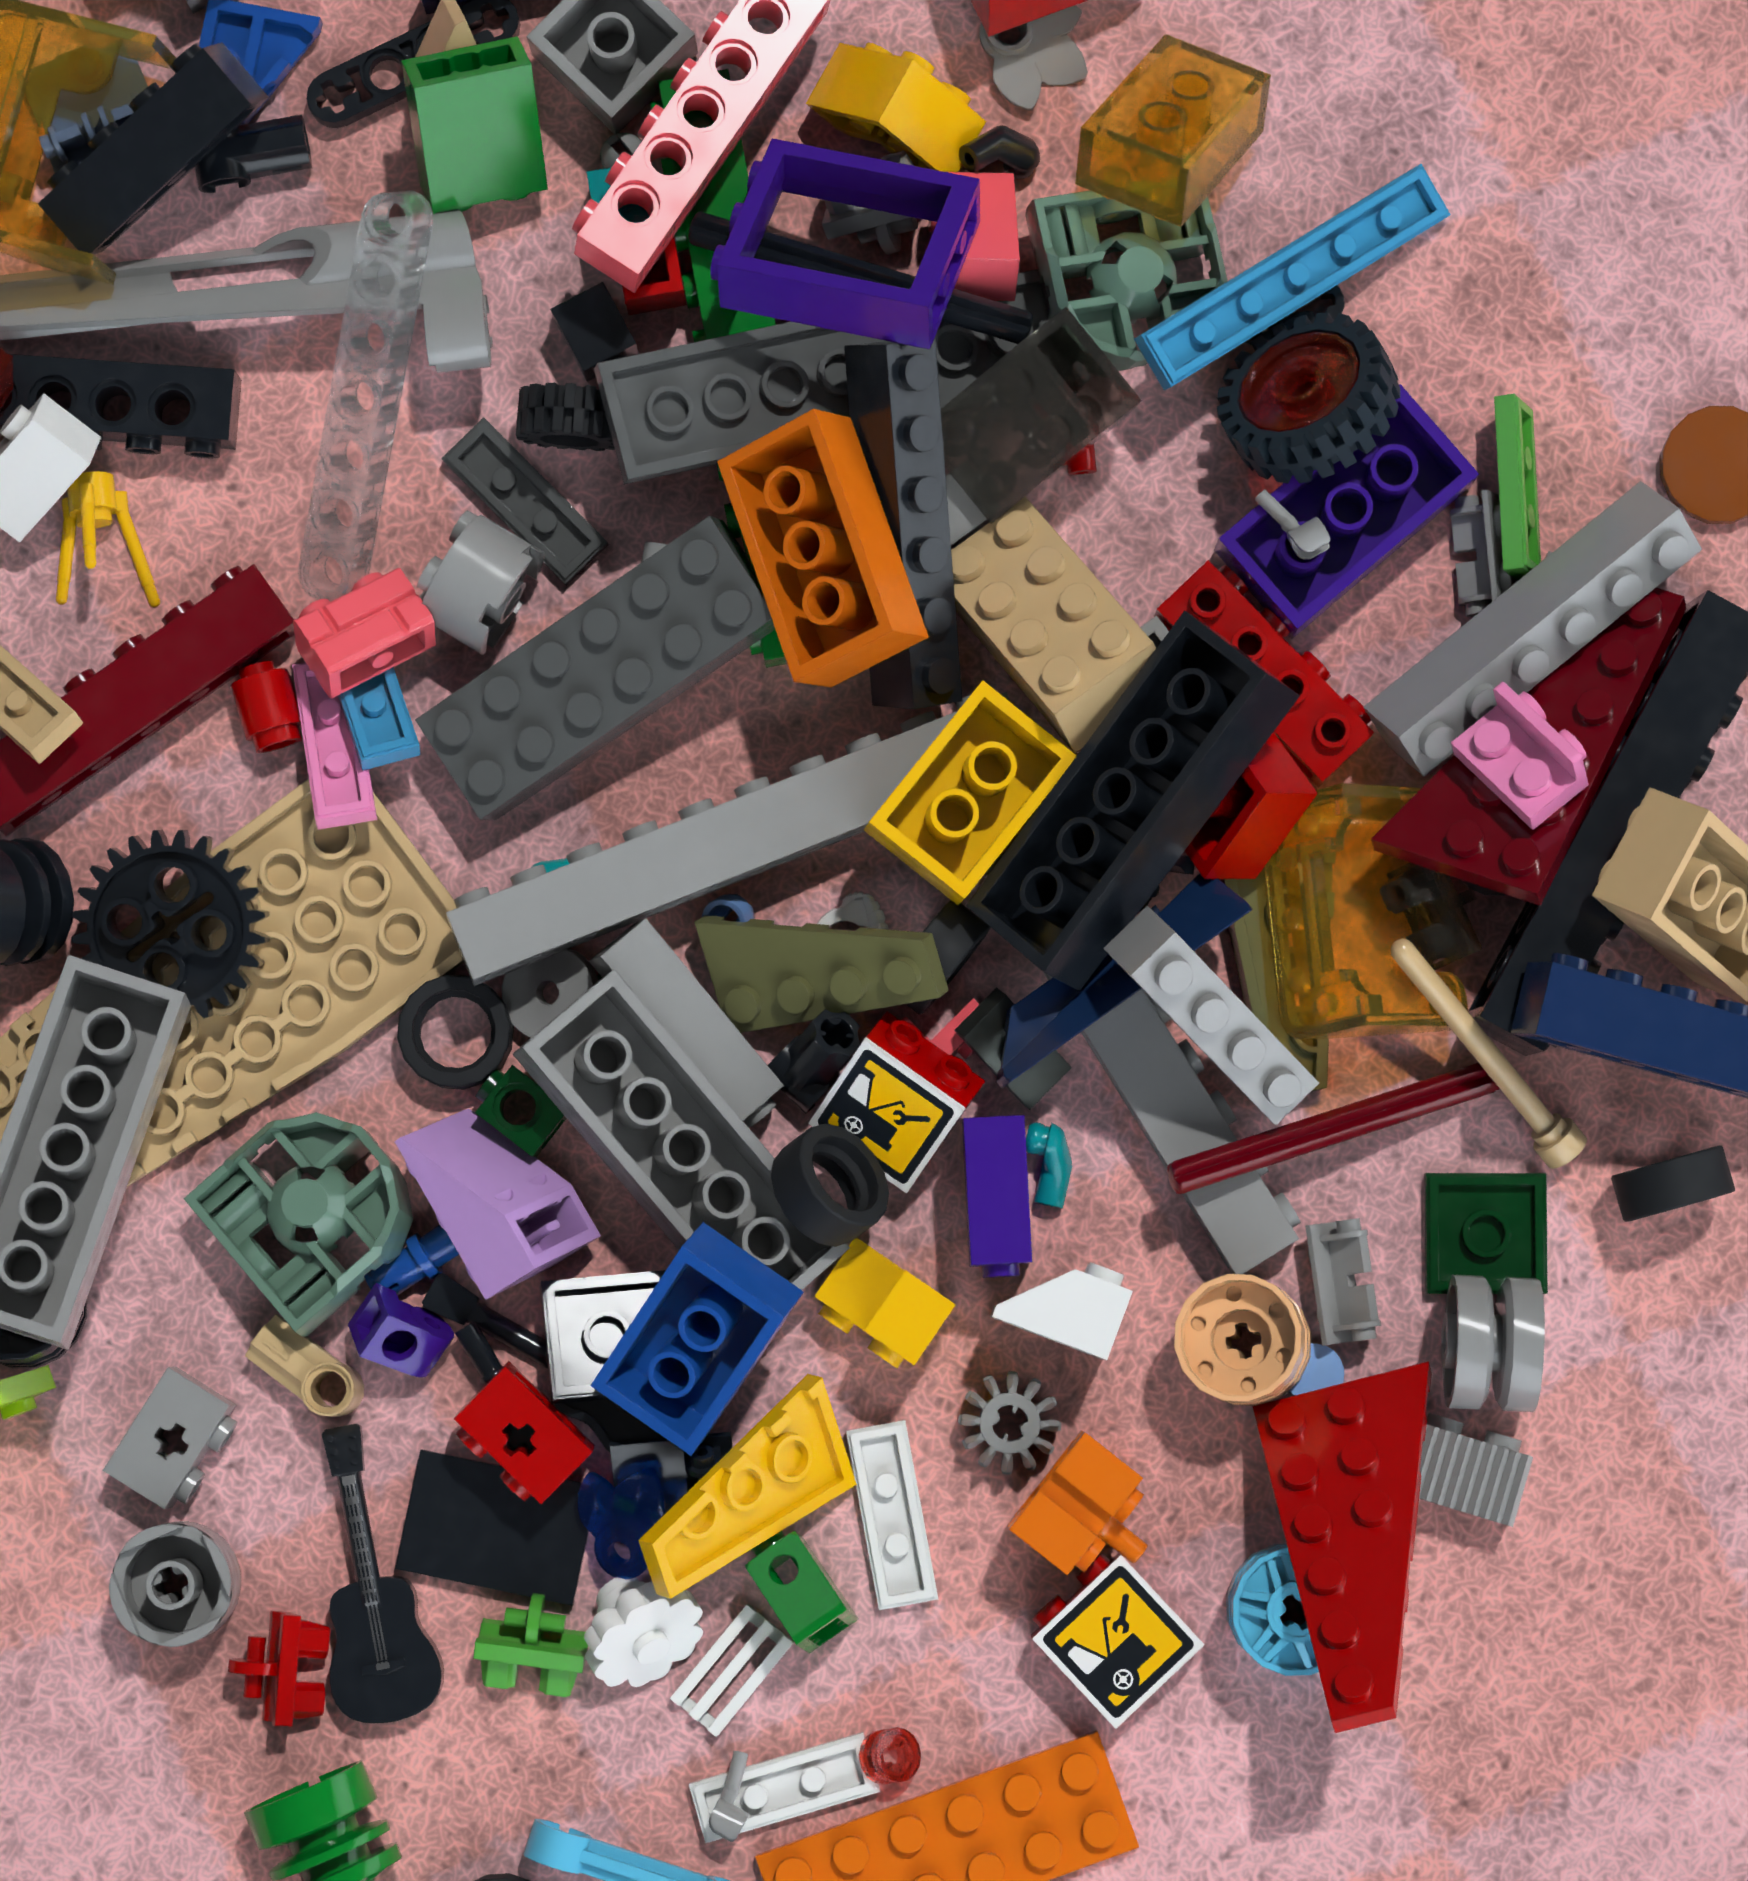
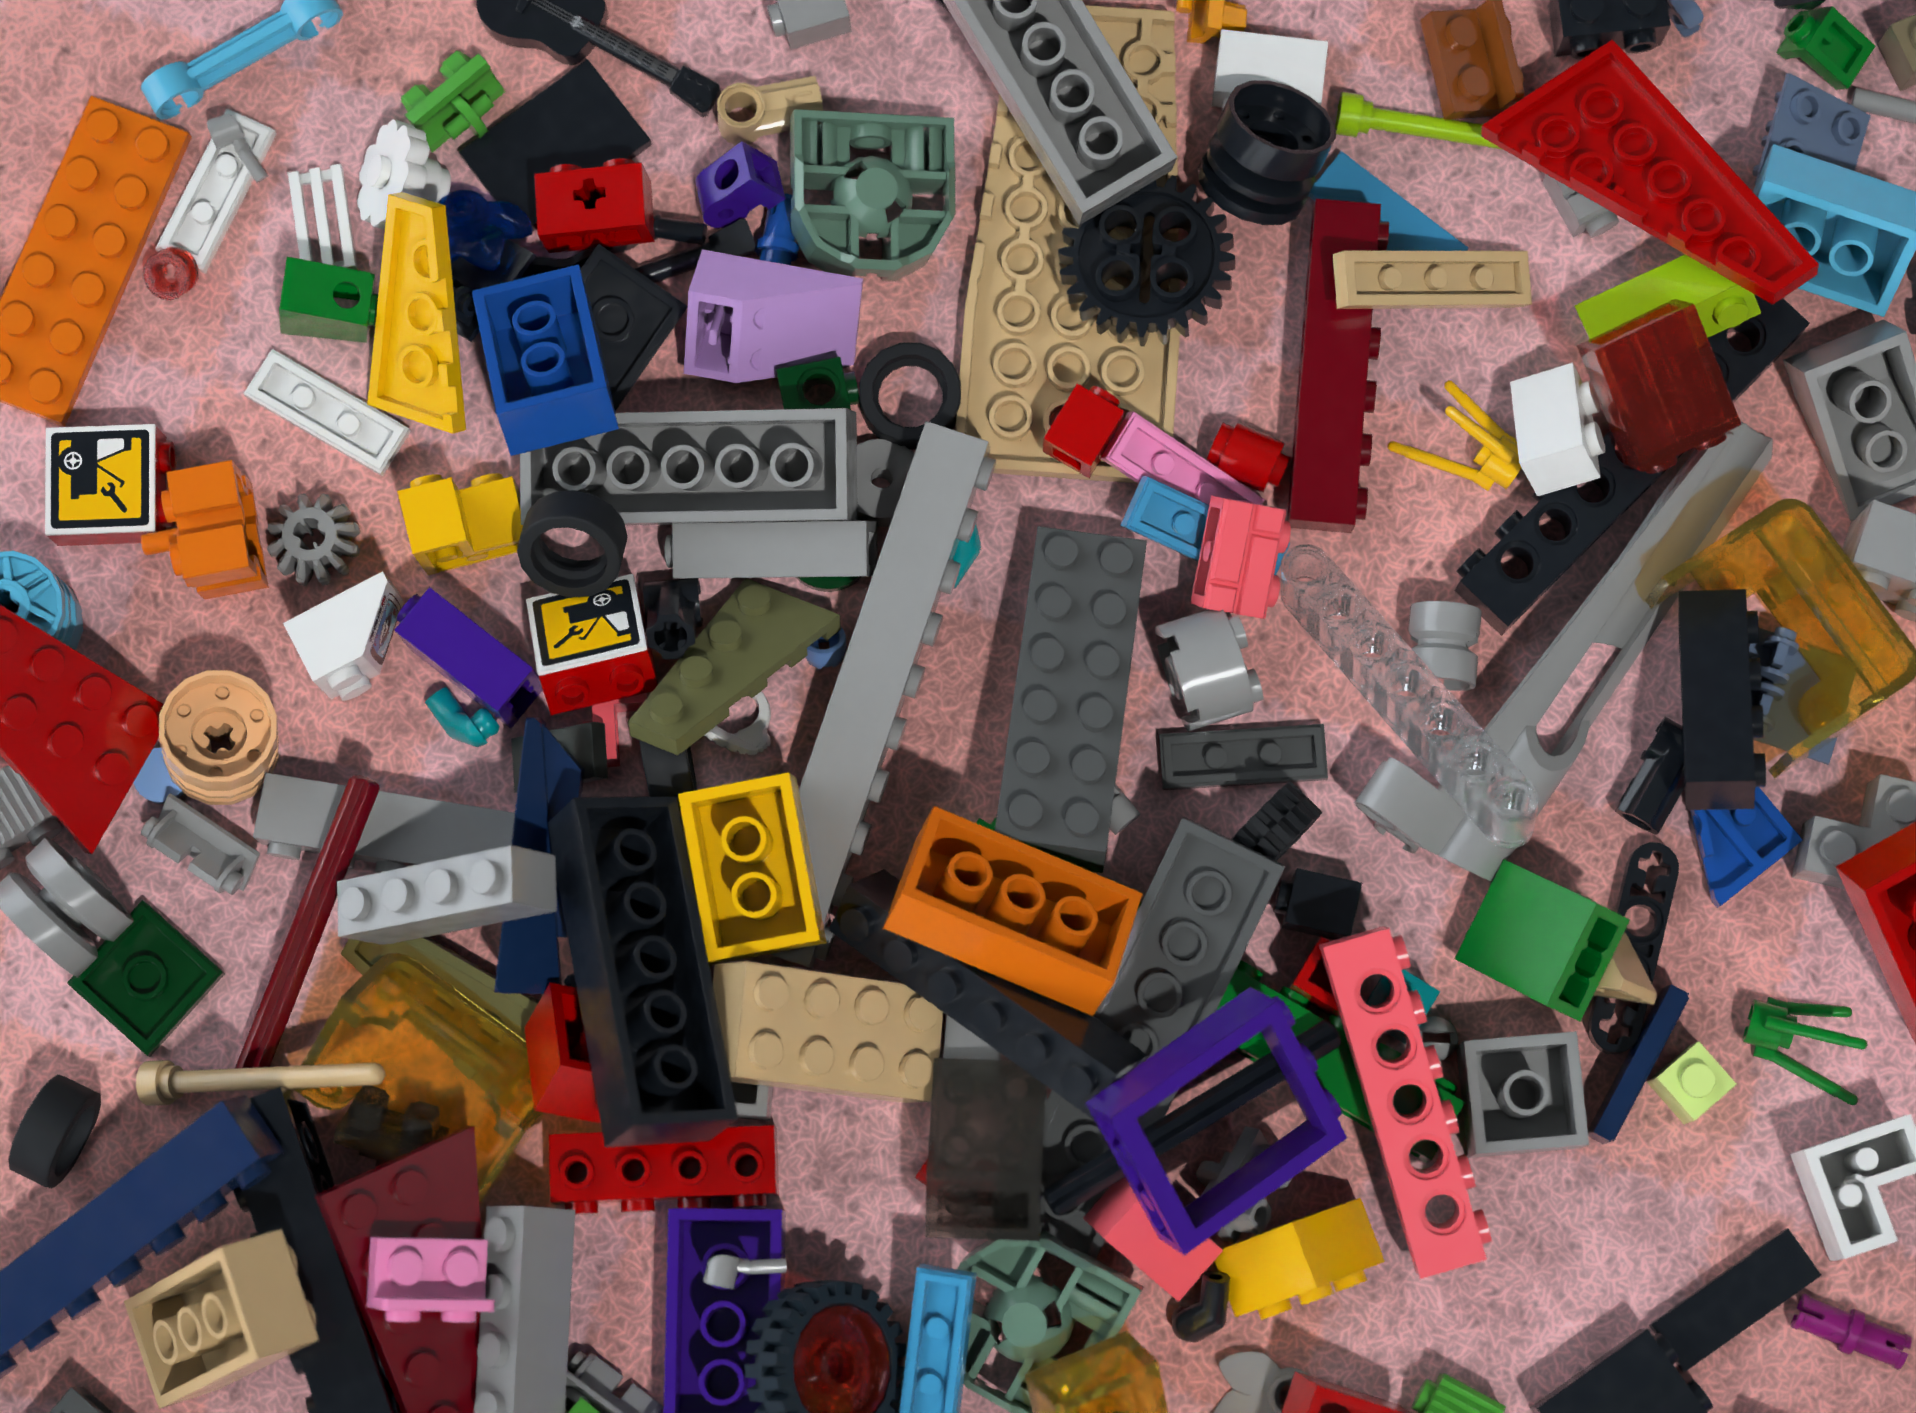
camera: 130 degrees right, 5 degrees down
(290, 414) = (1443, 639): none -> light grey wheel
(362, 852) = (1083, 429): none -> red brick

